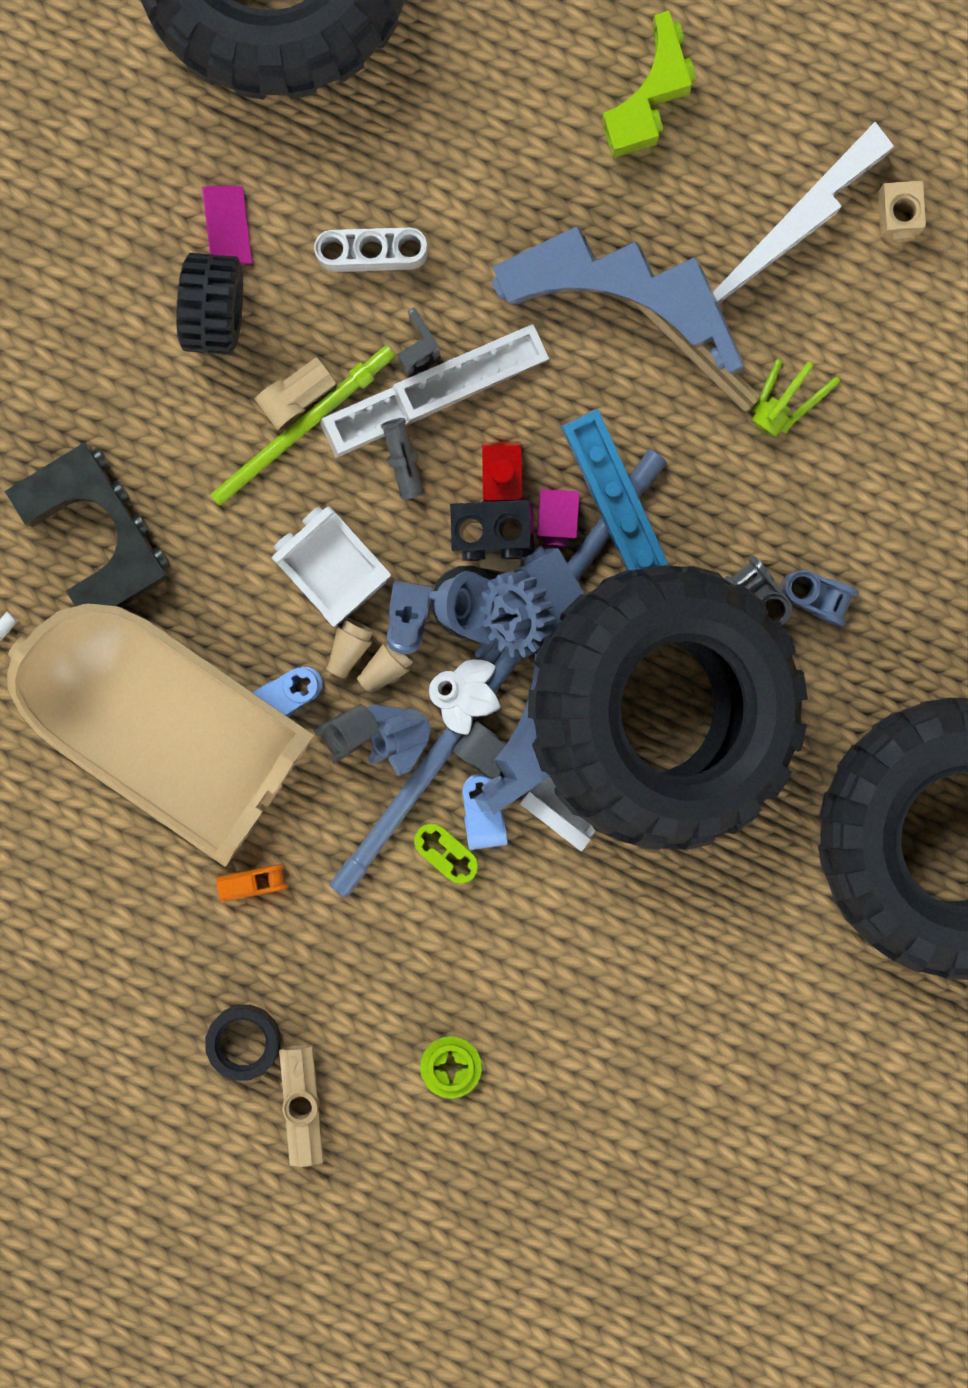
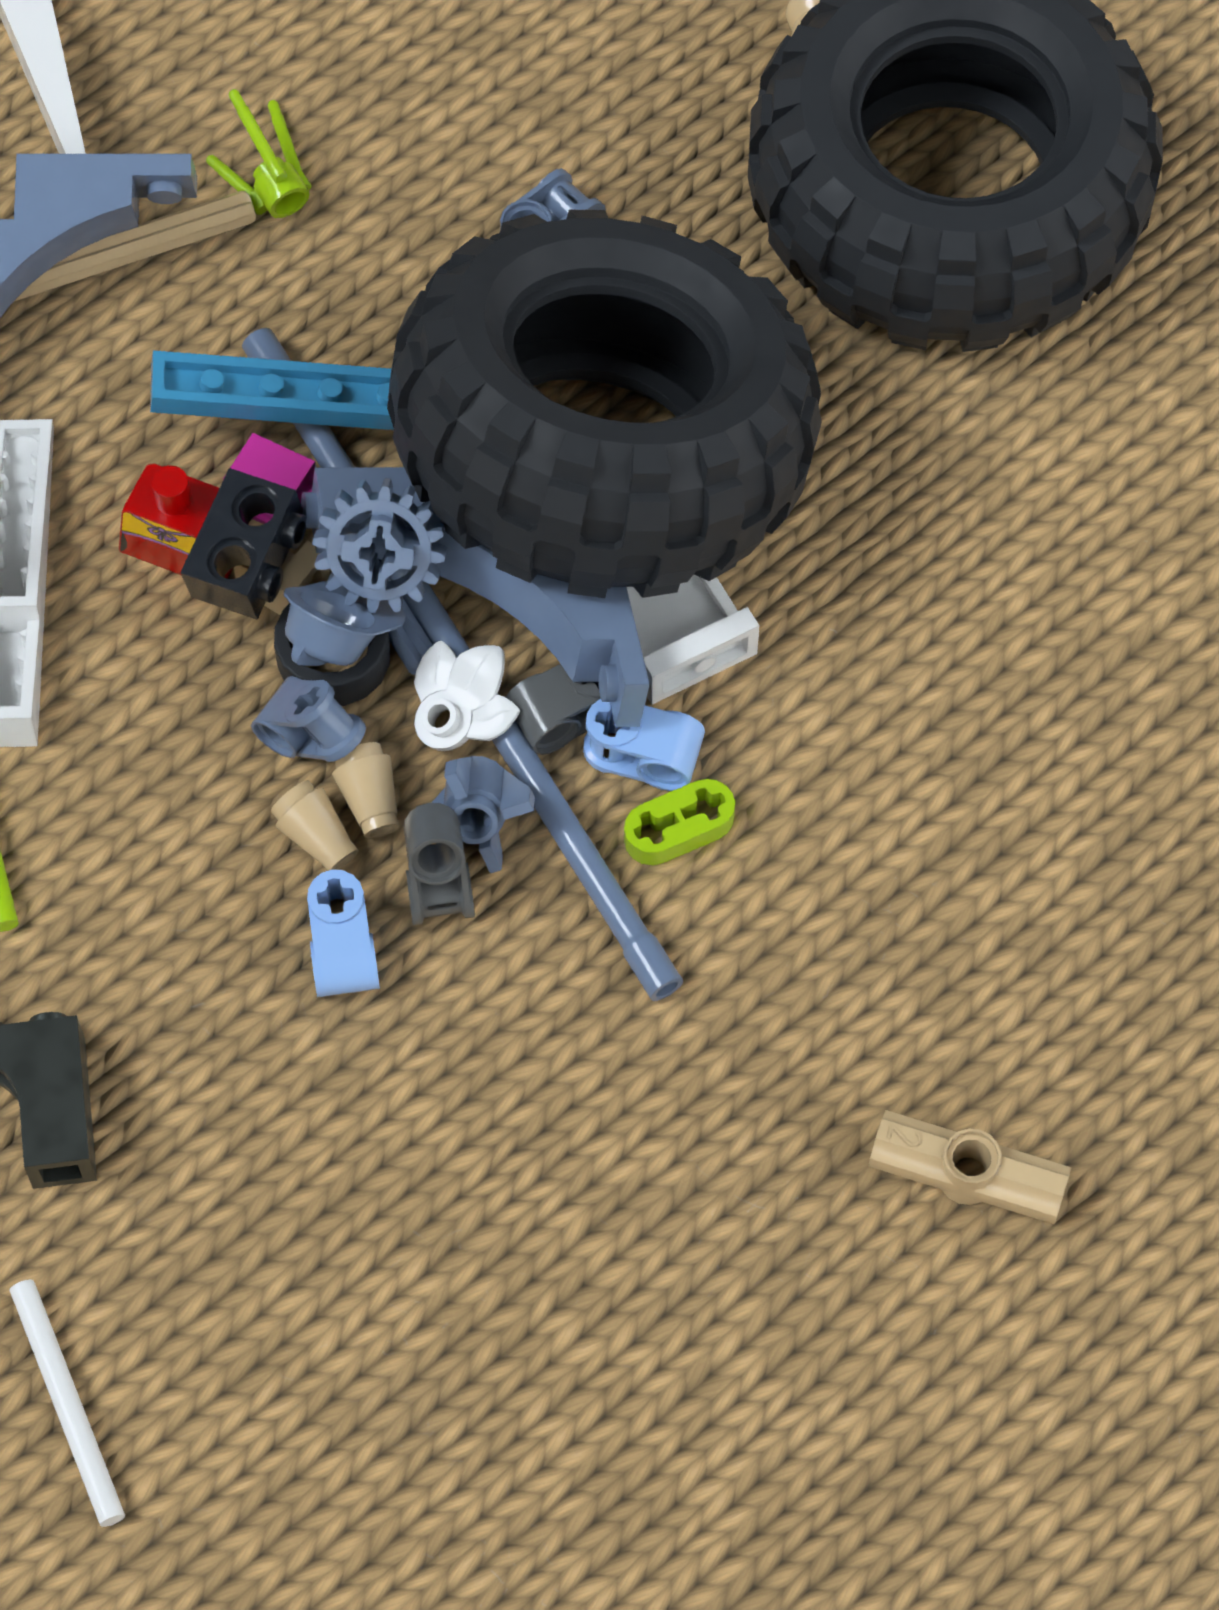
camera: 65 degrees left, 25 degrees down
(154, 722) = (292, 1121): tan panel -> none
(225, 1066) = (854, 1170): black tyre -> none
(245, 883) = (596, 1110): orange bar -> none
(330, 565) = (187, 805): white panel -> none
(402, 458) = (85, 642): dark grey pin -> none
(438, 1080) = (986, 917): lime gear -> none

